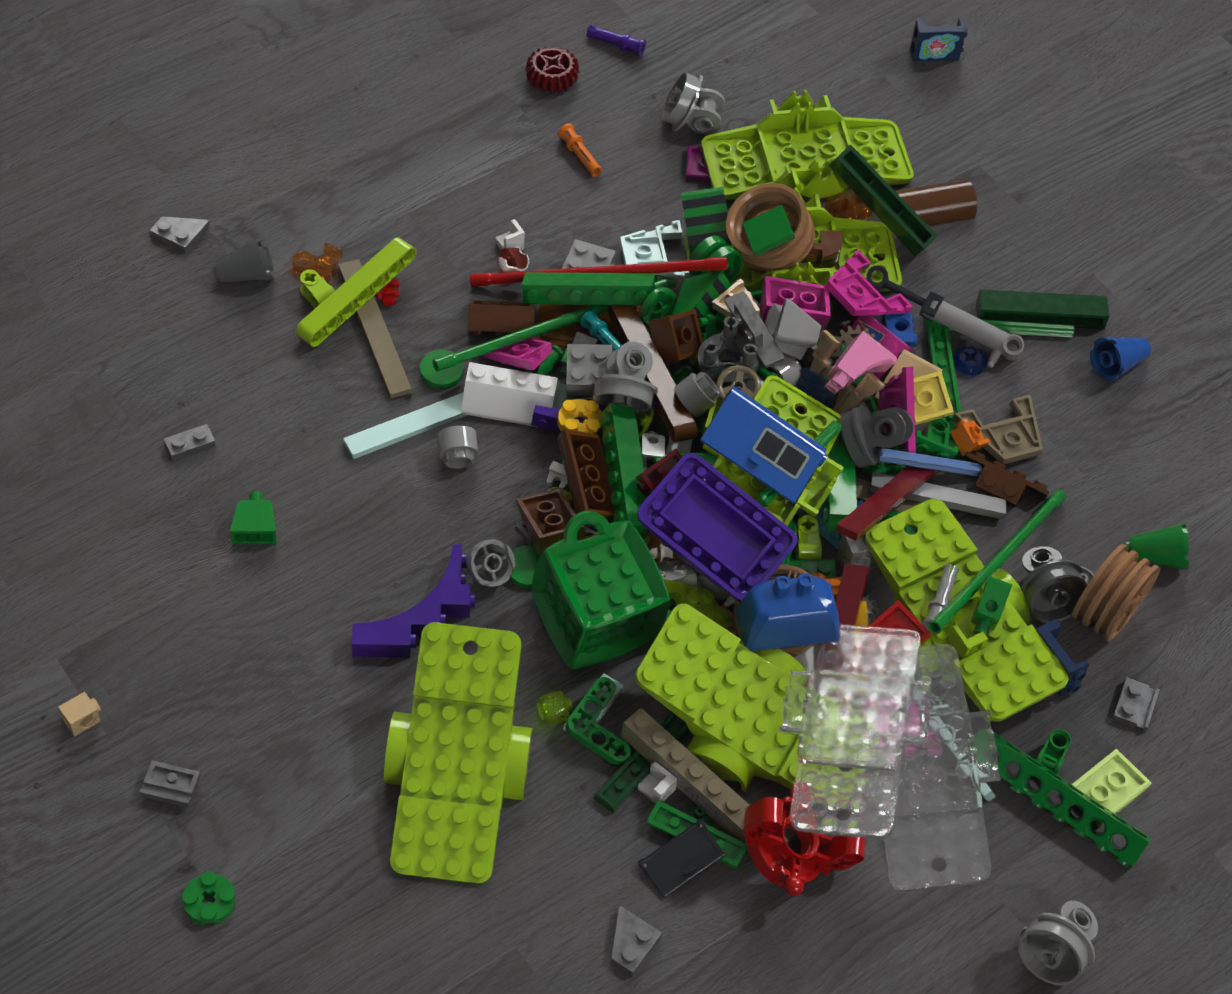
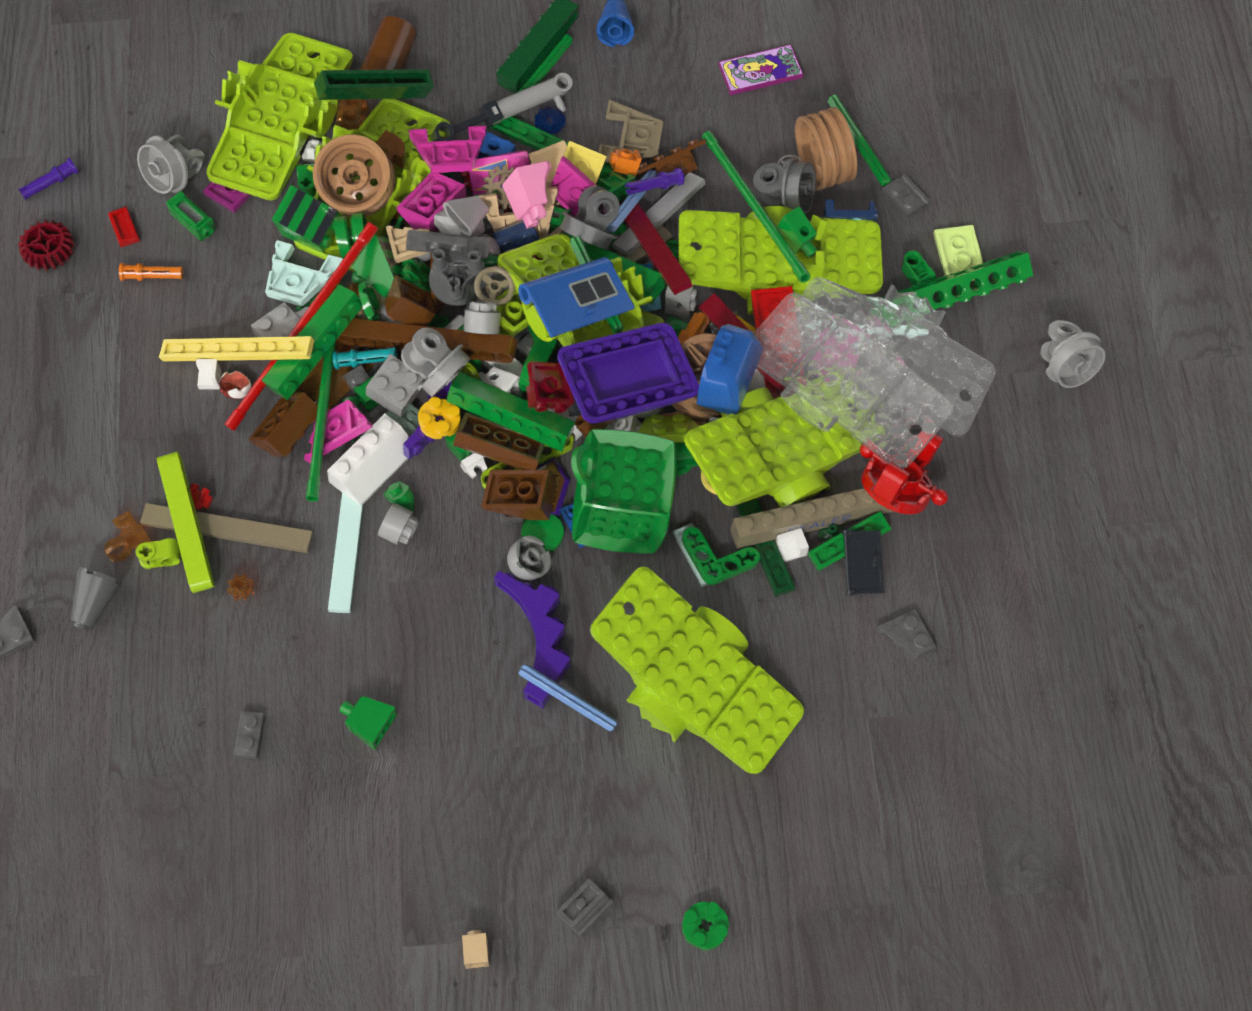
camera: 55 degrees left, 10 degrees up
(322, 363) = (239, 581): none -> clear orange gear
(368, 663) = (567, 697): none -> medium blue axle
(445, 378) = (296, 499): green tile -> none
(488, 437) = (401, 495): none -> green plate
(543, 240) = (237, 348): none -> light yellow plate
(554, 707) = (685, 581): clear neon green head -> none
(611, 112) = (123, 227): none -> red tile
(655, 149) = (191, 216): none -> green window
(768, 230) = (365, 177): green tile -> none
(943, 593) = (773, 266): light grey pin -> none
(971, 476) = (661, 181): none -> dark purple pin
(1016, 626) = (819, 225): none -> lime tile
(1163, 546) = (797, 95): green cone -> none
(1166, 630) = (861, 143): none -> green axle
(1174, 504) = (760, 69): none -> tile

